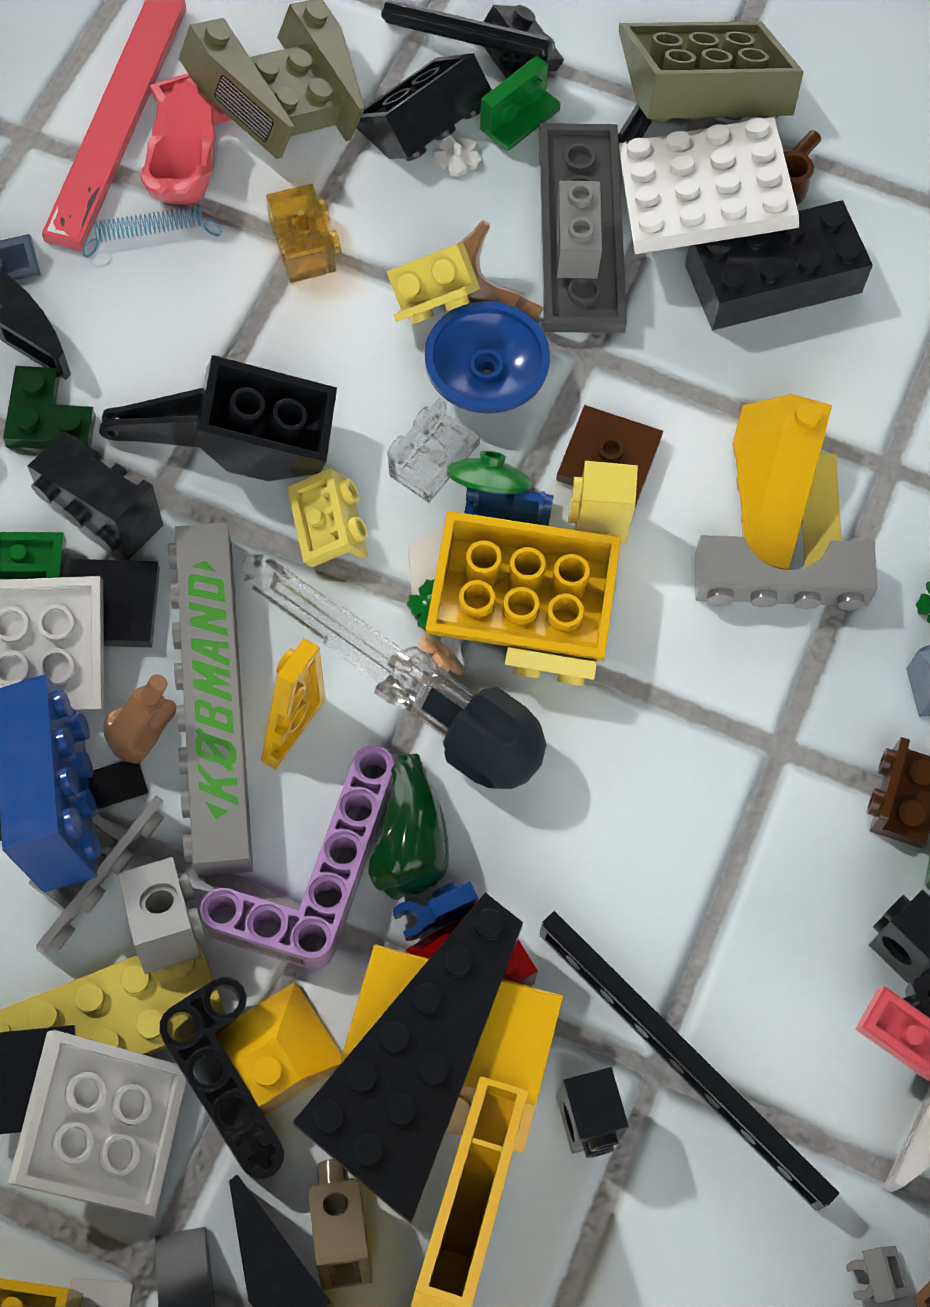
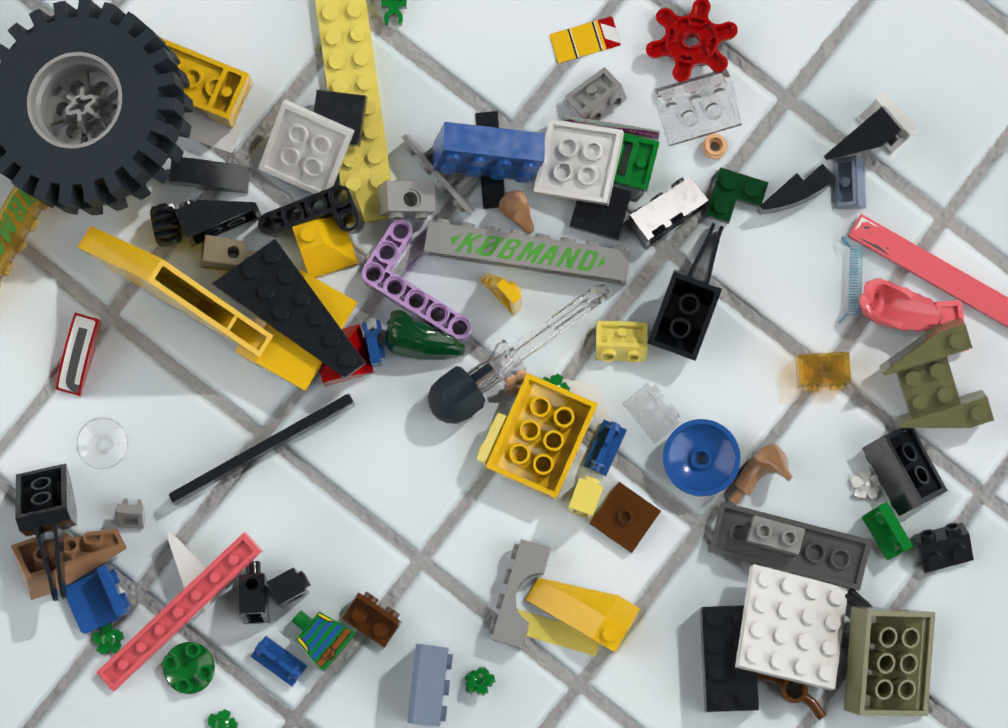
camera: 110 degrees right, 15 degrees up
(433, 281) = (758, 437): light yellow bracket -> none
(467, 30) = (953, 511): black axle -> none
(489, 474) = (622, 438): green dish -> none
(592, 1112) = (244, 390): black brick -> none

